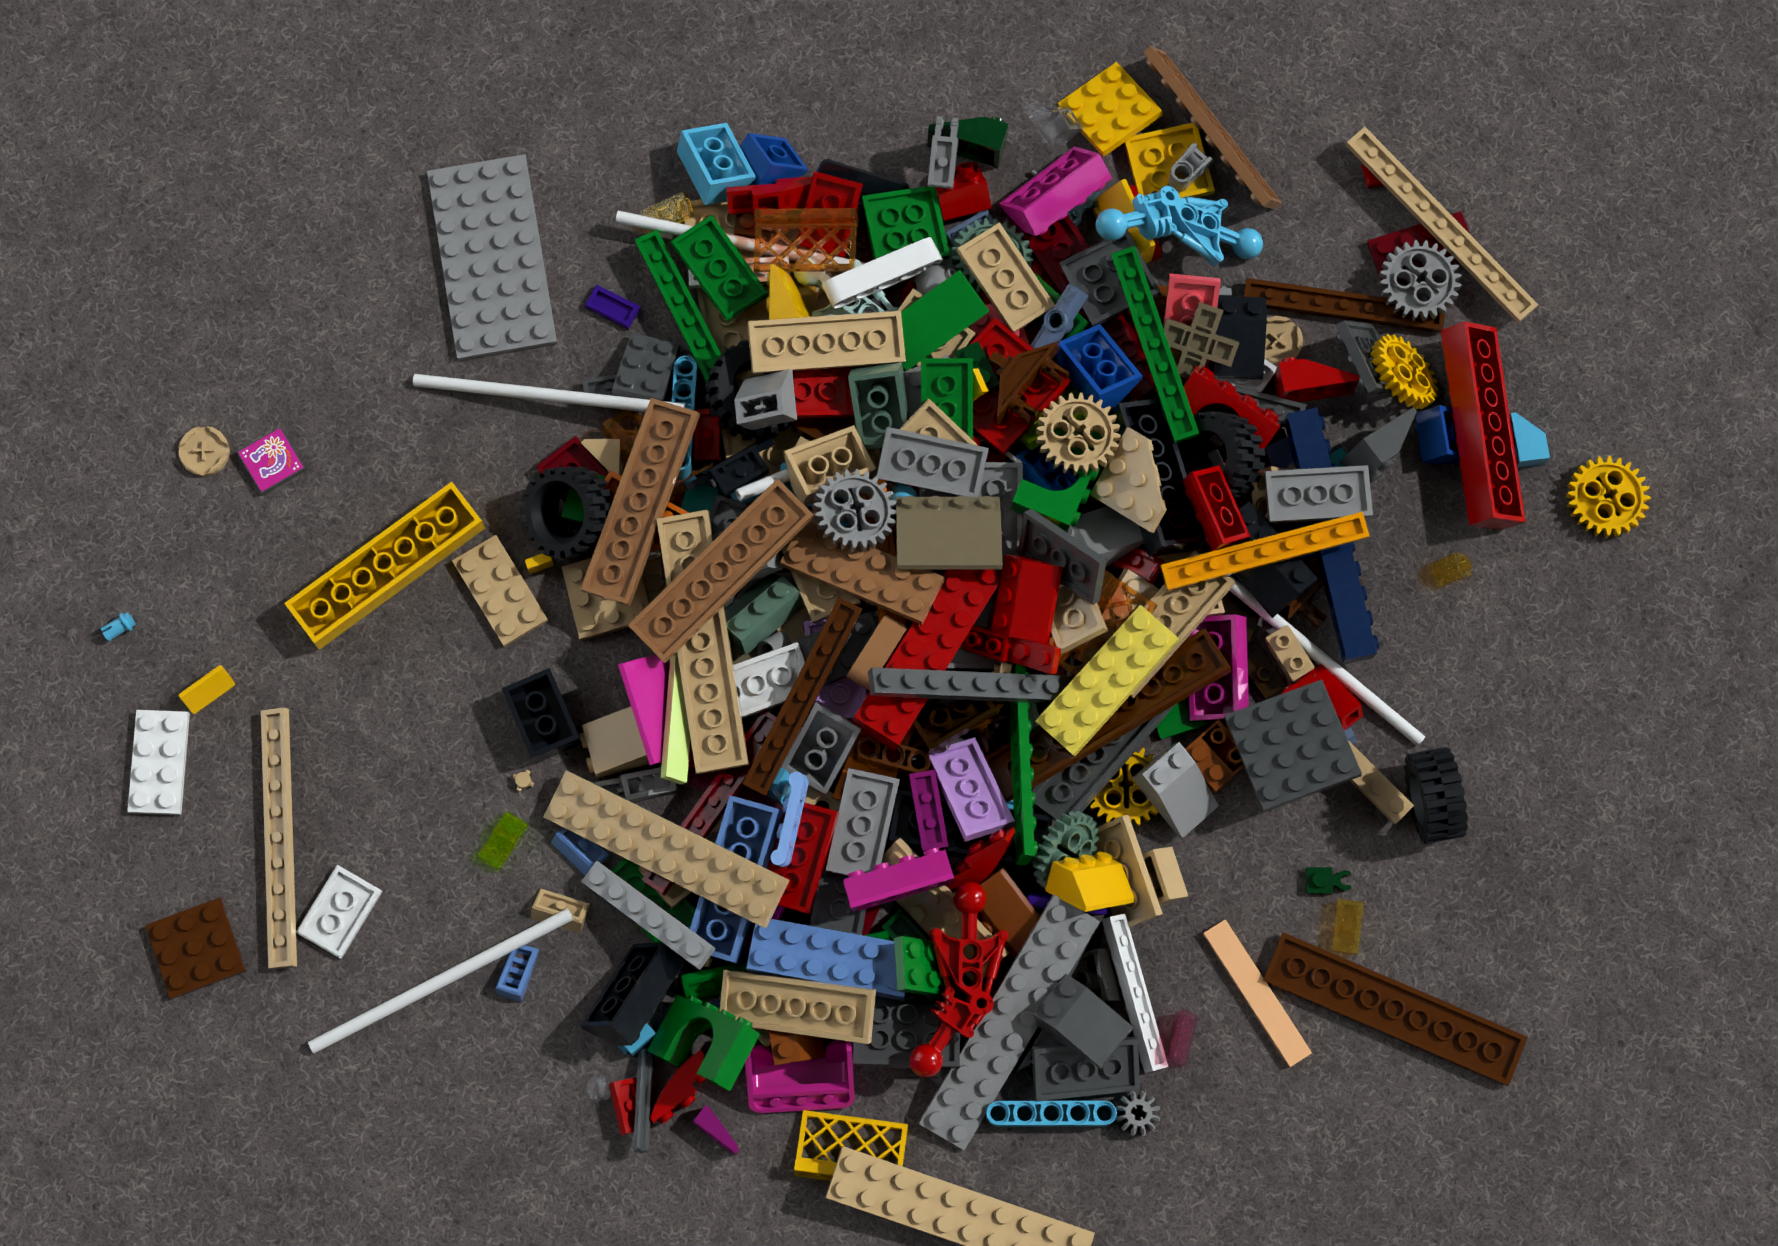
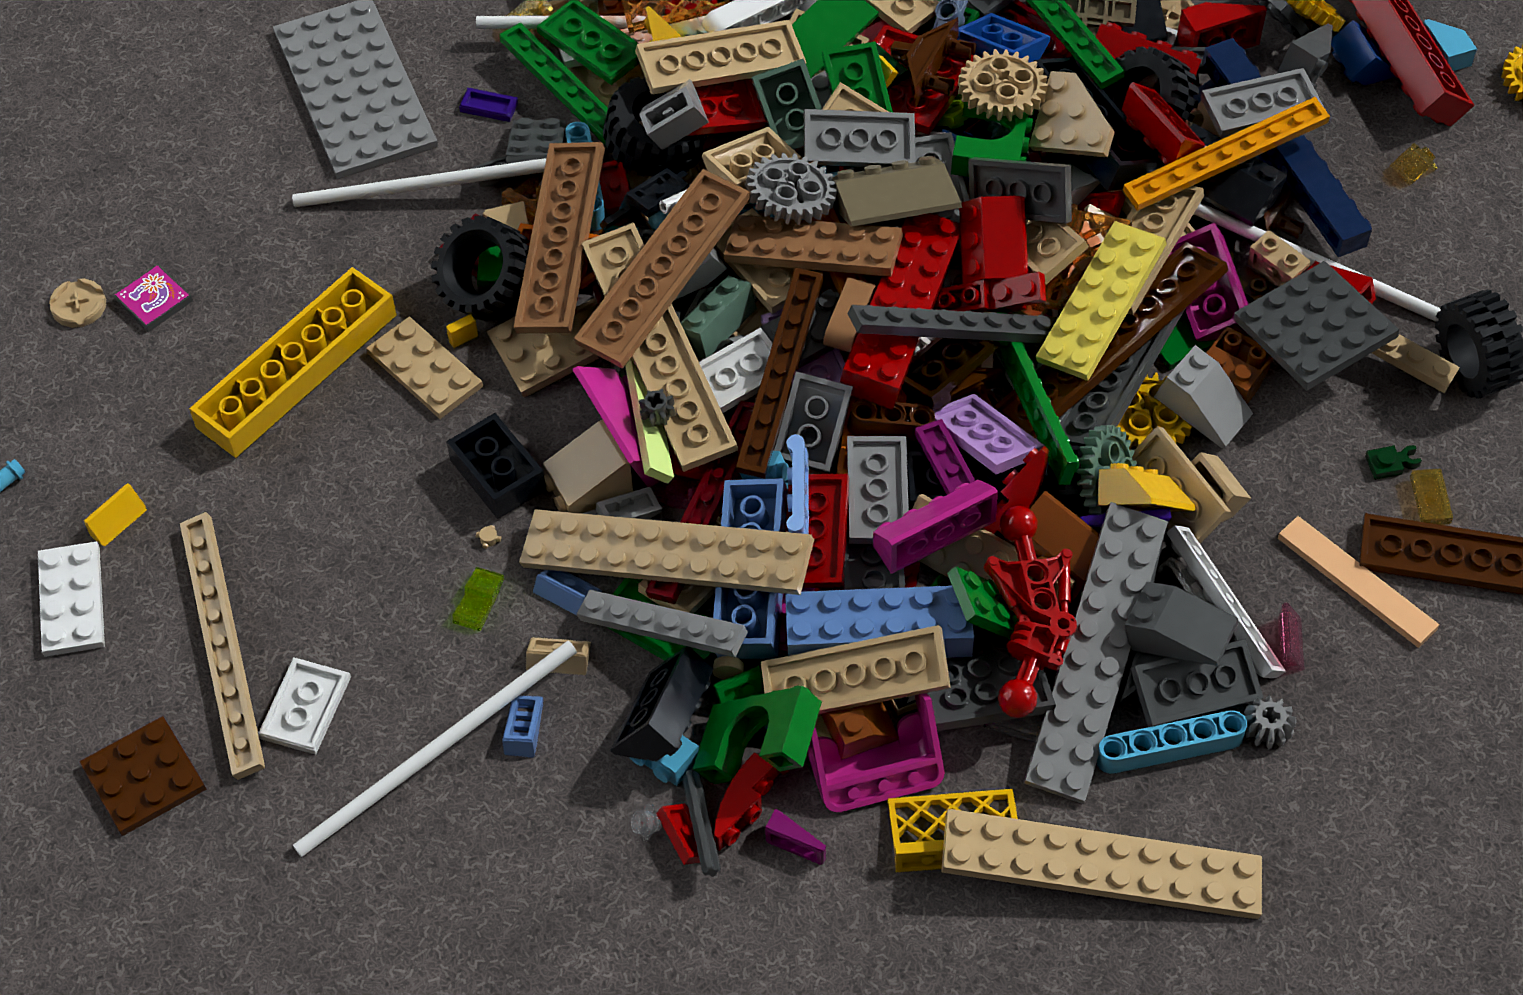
camera: 10 degrees left, 20 degrees down
(685, 722) = (657, 407): none -> dark grey gear

